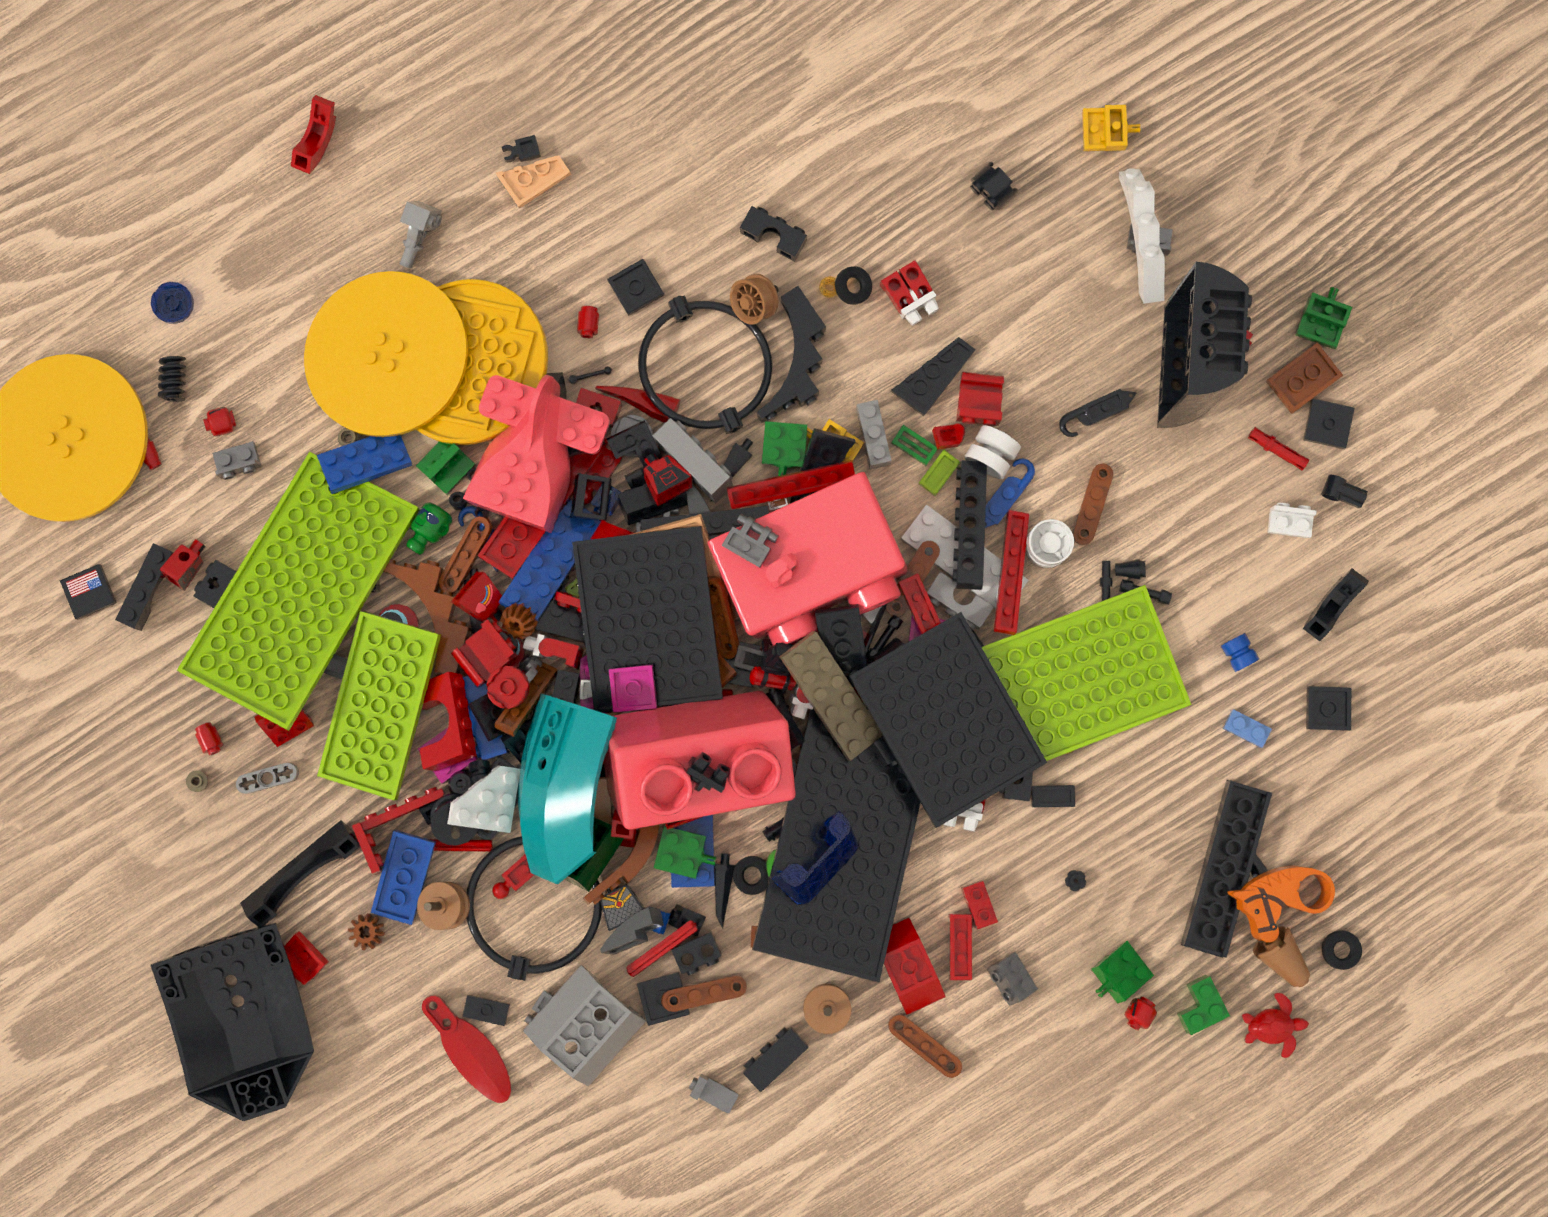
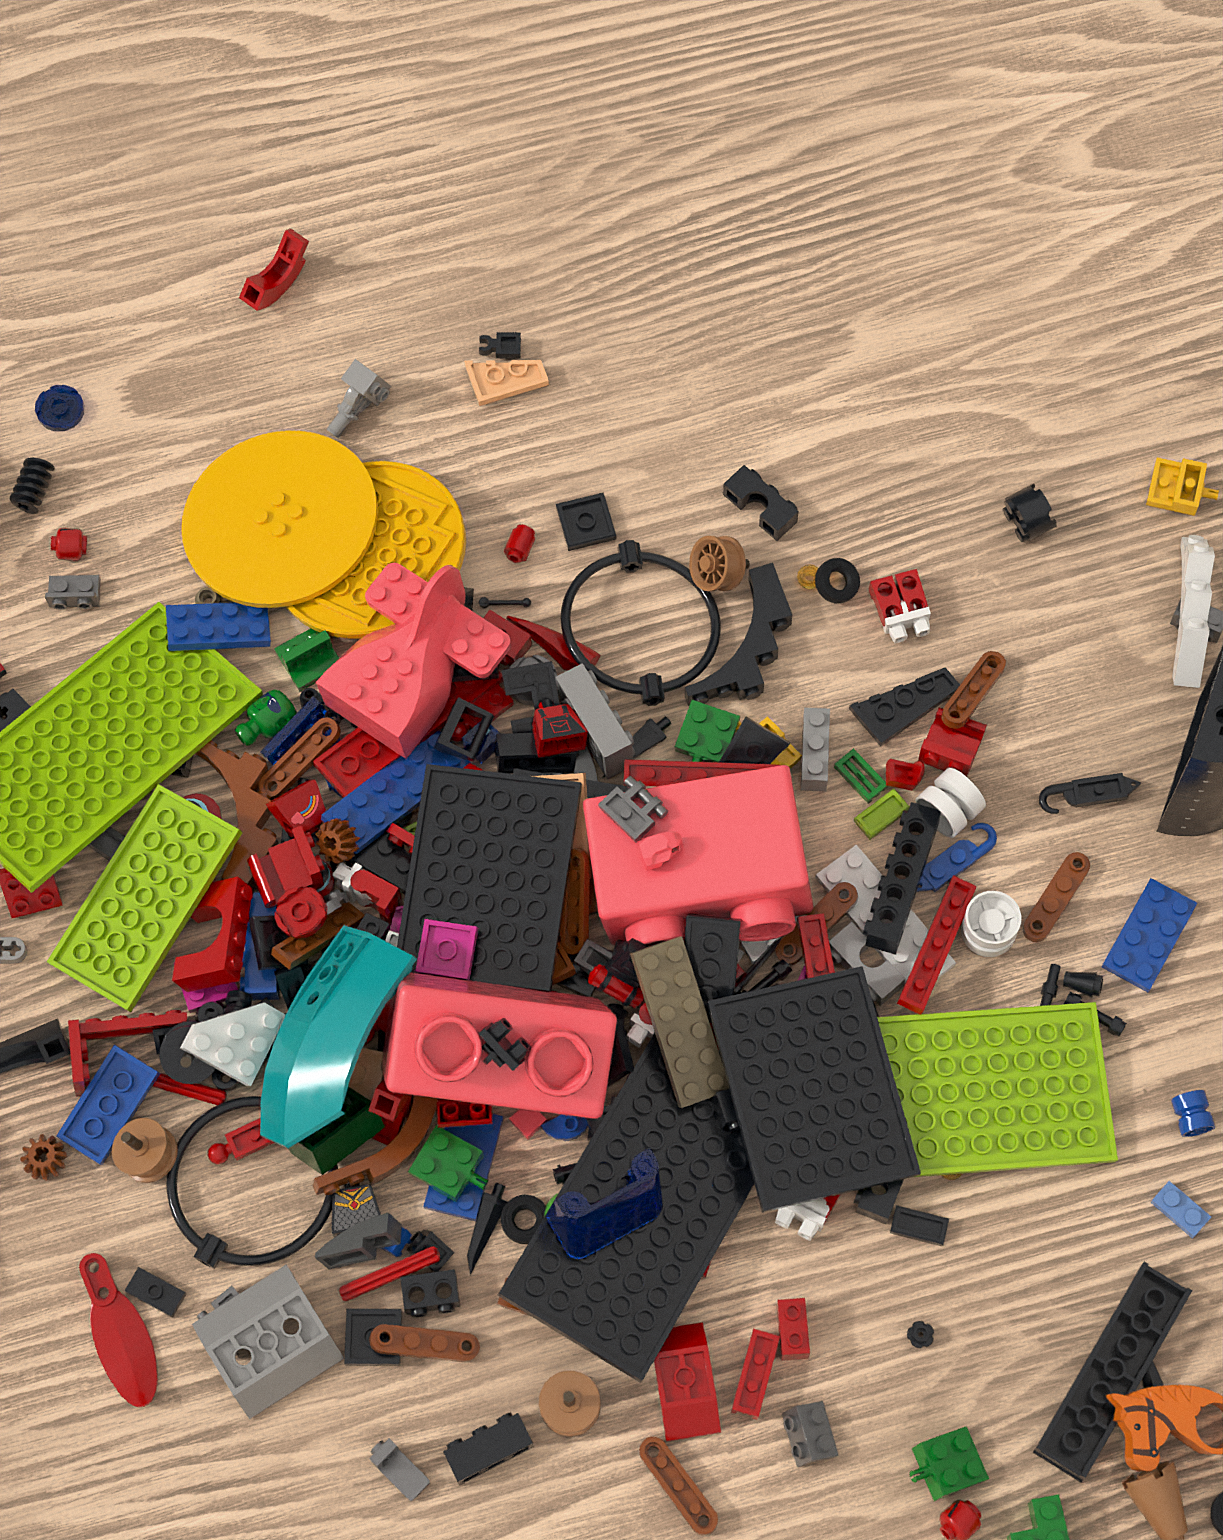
camera: 15 degrees right, 15 degrees down
(454, 533) = (293, 730): none -> clear blue plate
(986, 350) = (973, 689): none -> dark orange plate
(1172, 515) = (1149, 935): none -> blue plate

